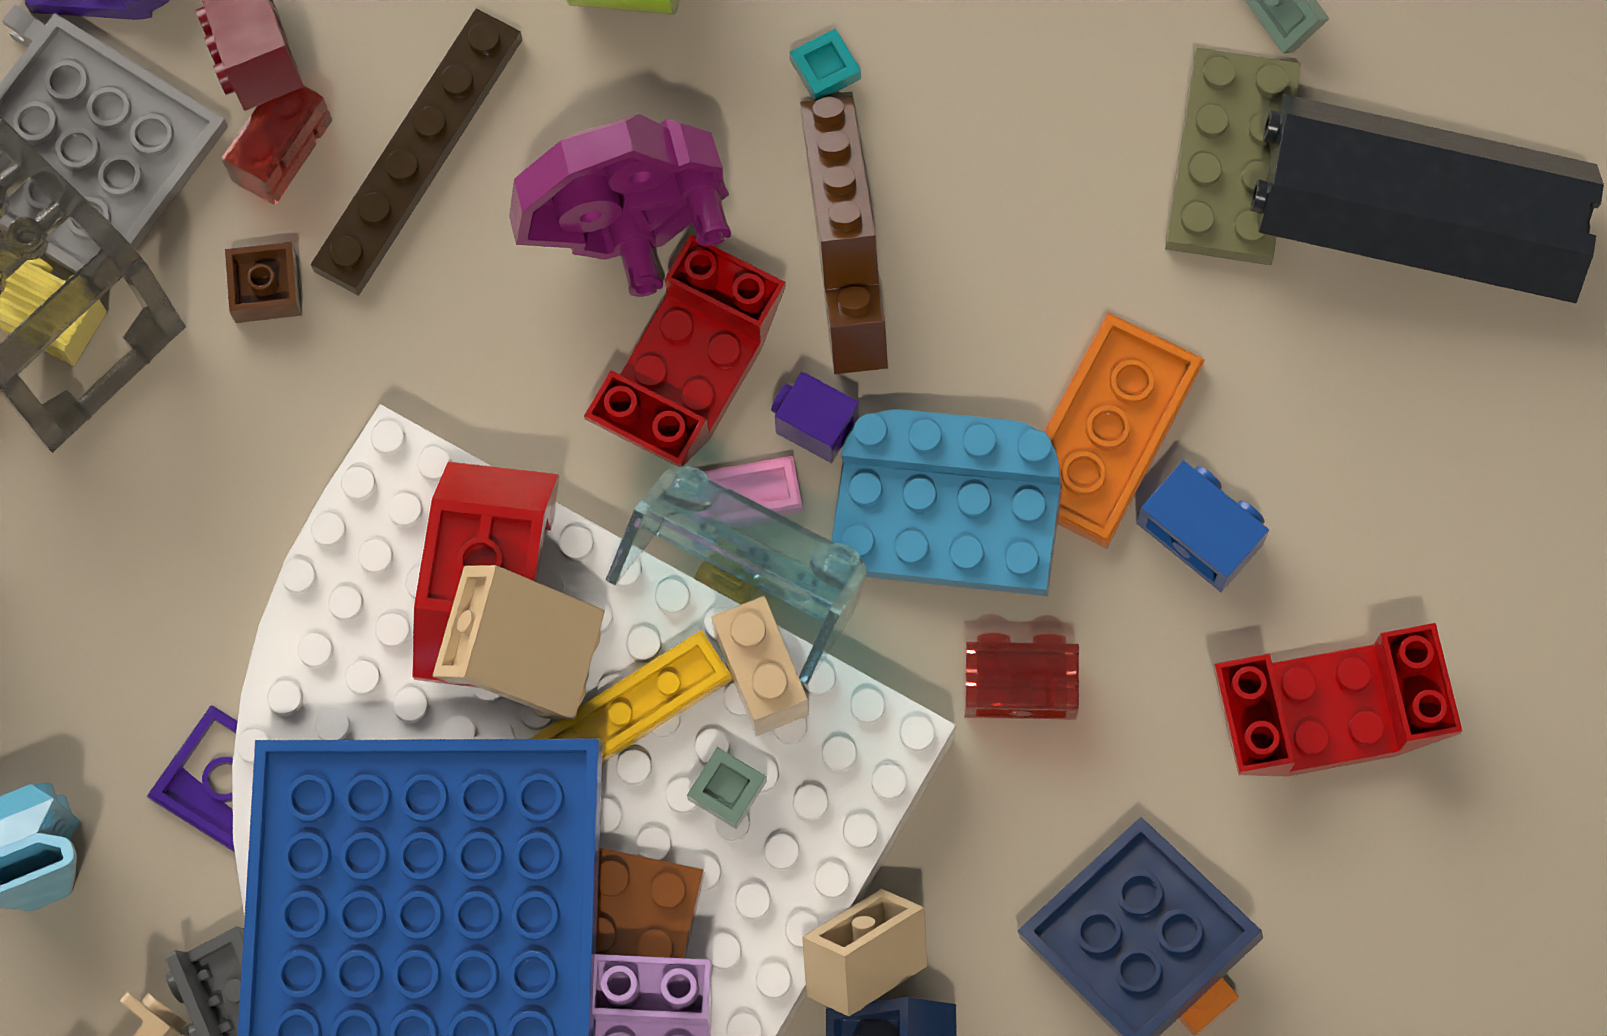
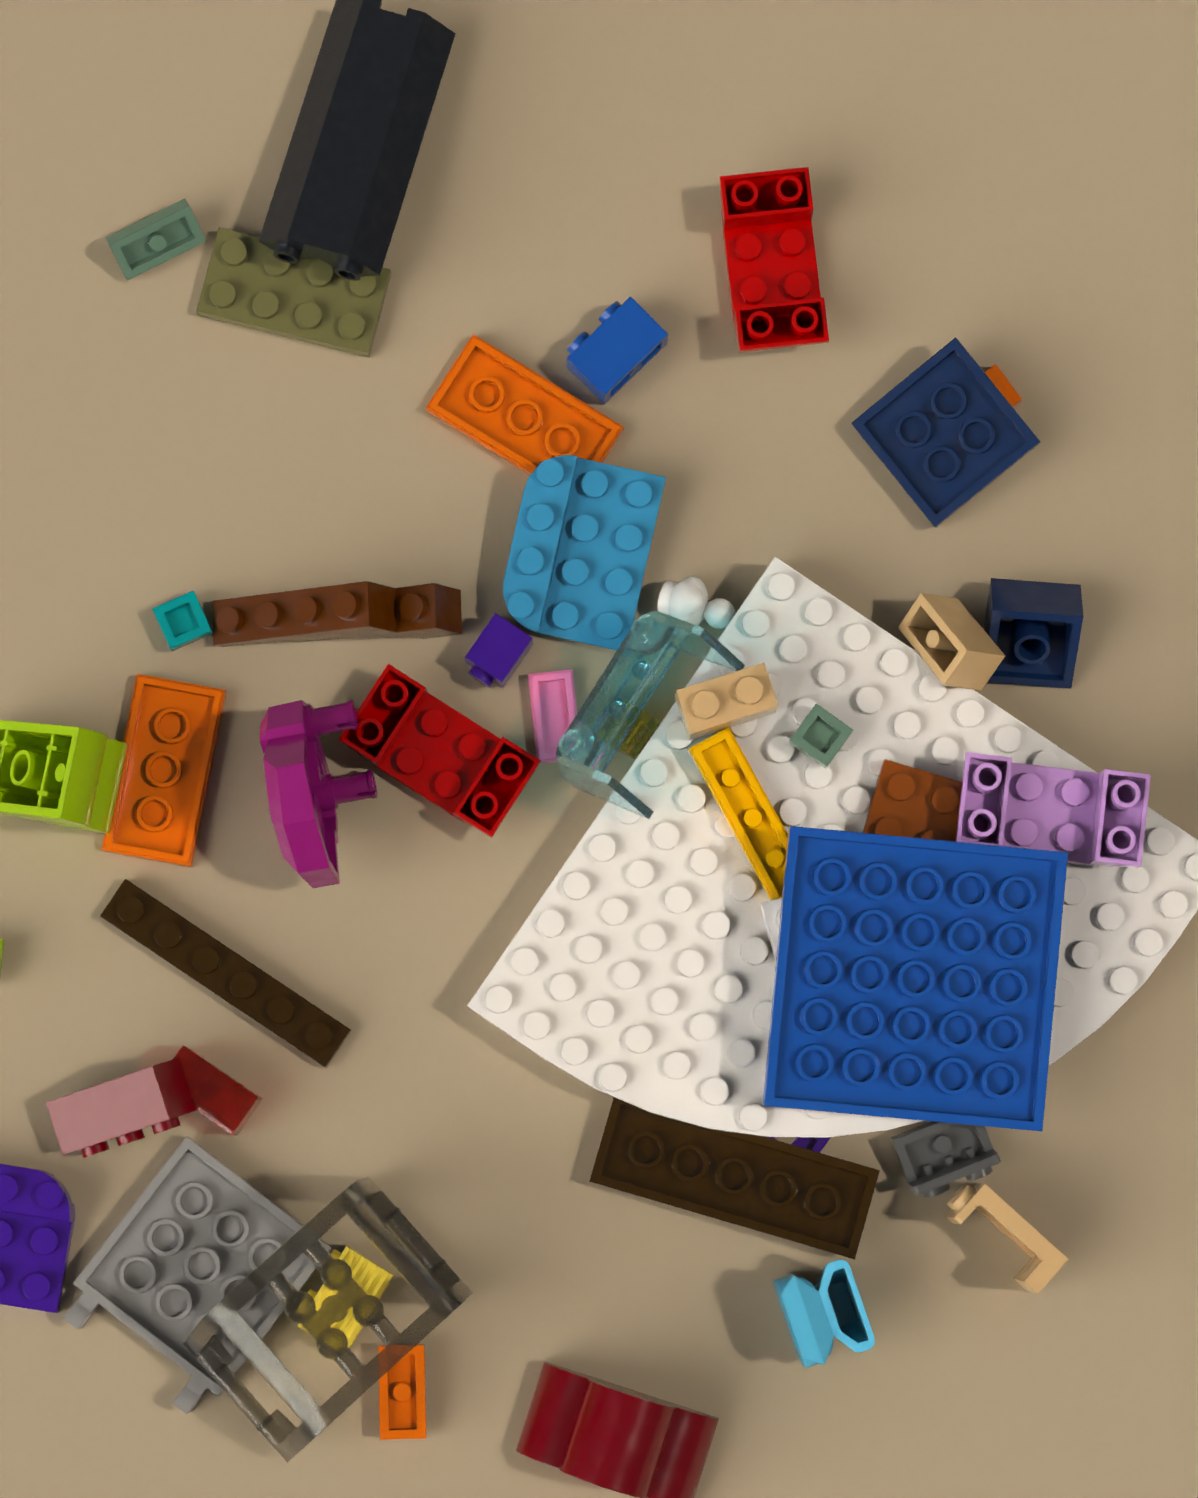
camera: 90 degrees left, 10 degrees up
(181, 751) = (737, 1178): none -> dark brown plate
(263, 282) = (336, 1108): reddish brown piece -> none
(476, 520) = (630, 917): red slope -> none
(520, 641) = (701, 889): tan panel -> none
(650, 65) = (165, 770): none -> orange tile
(892, 636) = (690, 603): none -> white animal
(1021, 678) = (732, 506): clear red brick -> none

